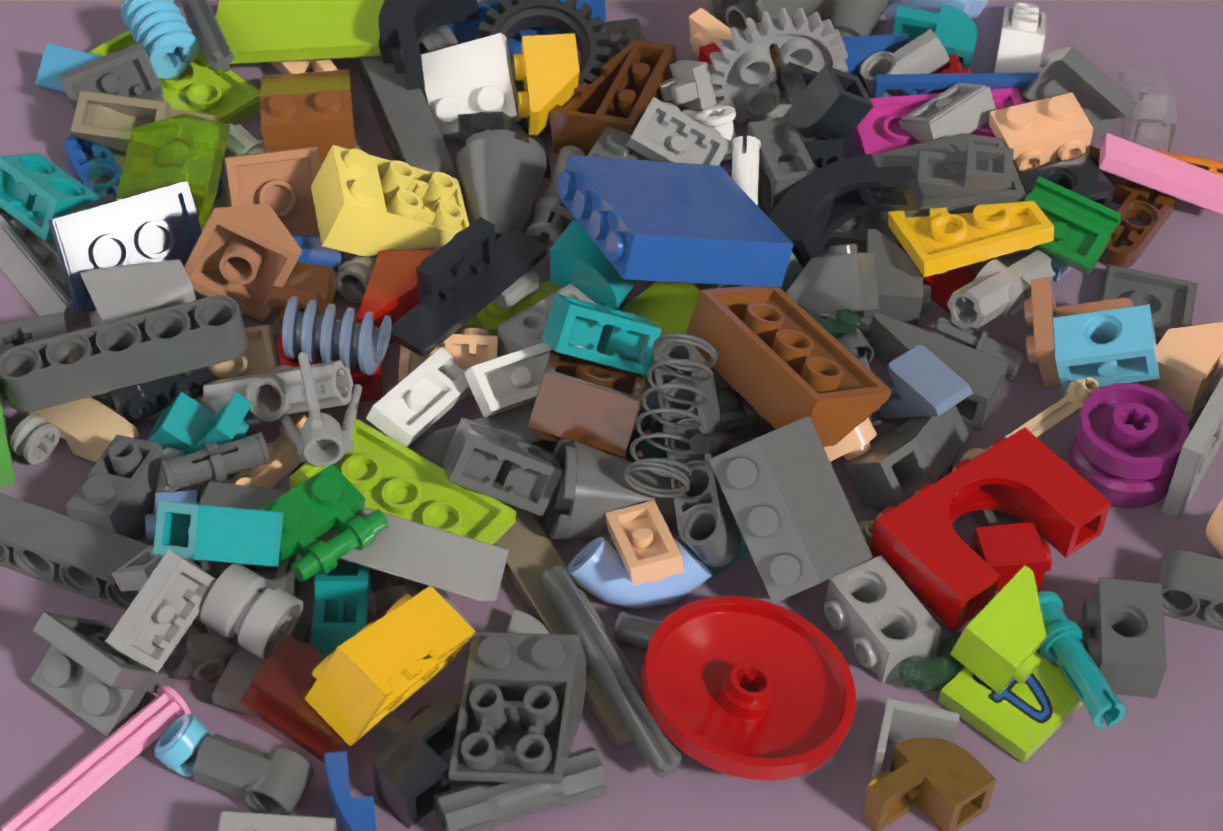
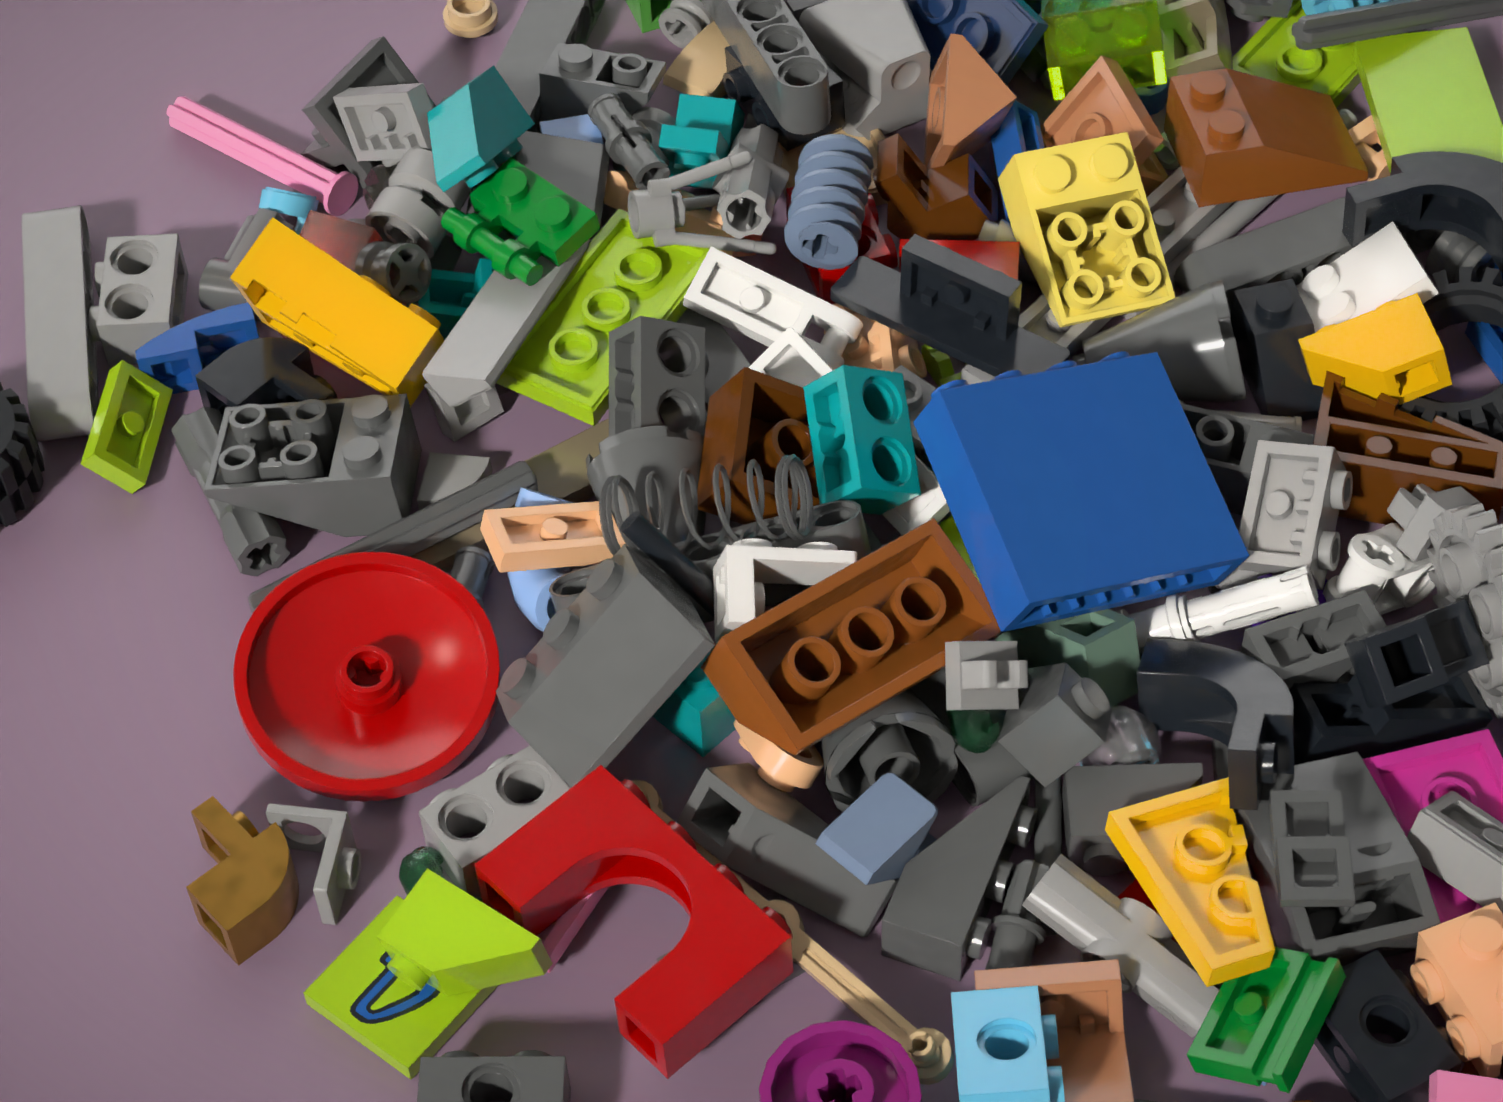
camera: 90 degrees right, 5 degrees up
(328, 629) = (398, 267): none -> dark grey wheel
(742, 405) = (753, 561): none -> white bracket
(820, 296) = (983, 675): none -> light grey tile
(1012, 547) = (609, 957): red brick -> none
(1066, 649) = (472, 1027): teal pin -> none

